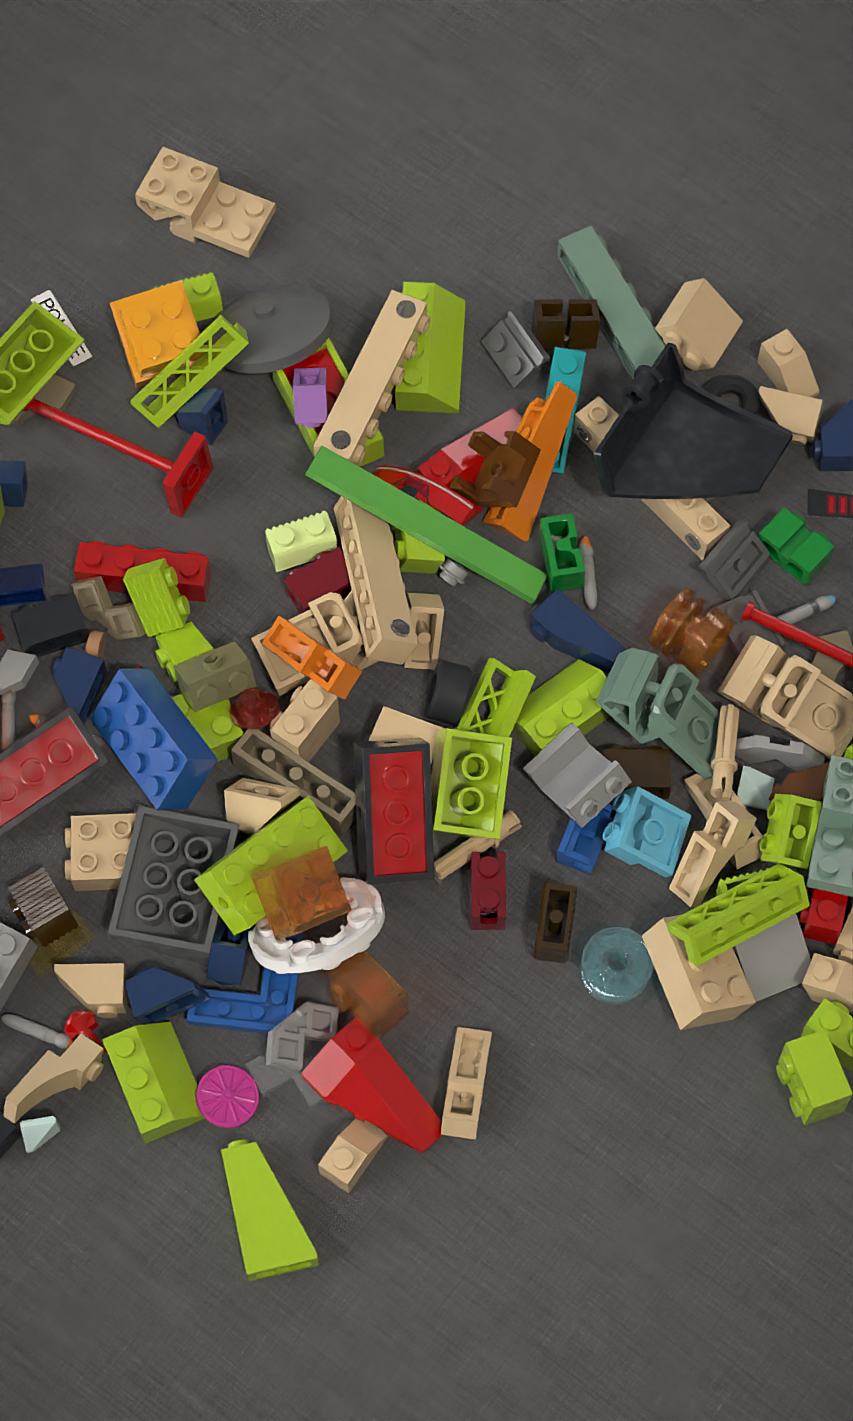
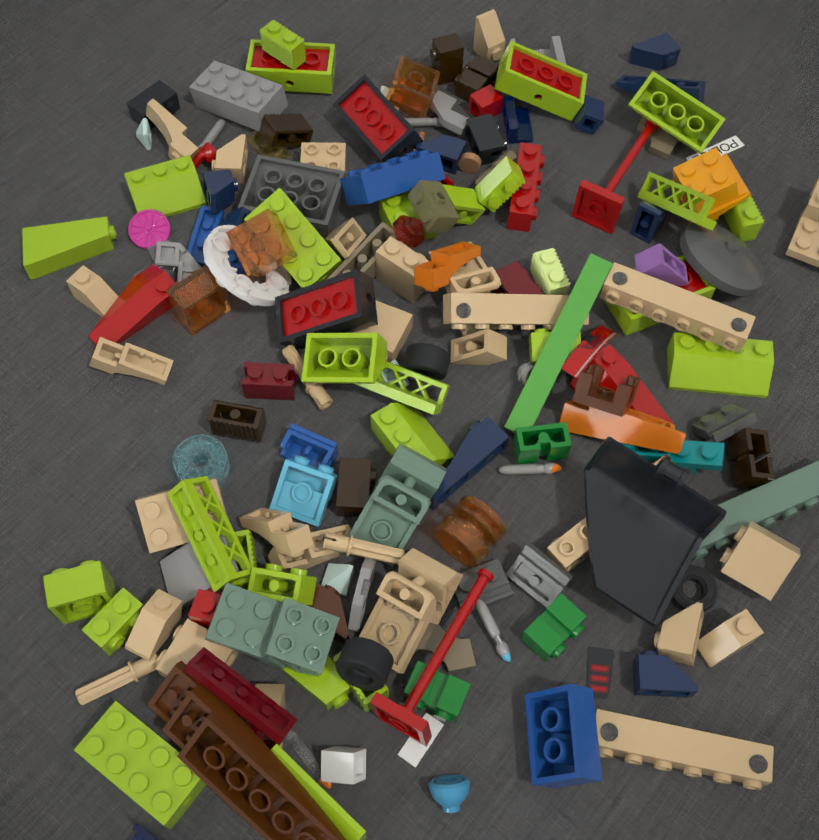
camera: 90 degrees right, 5 degrees down
(576, 776) = (350, 439): light grey panel -> none

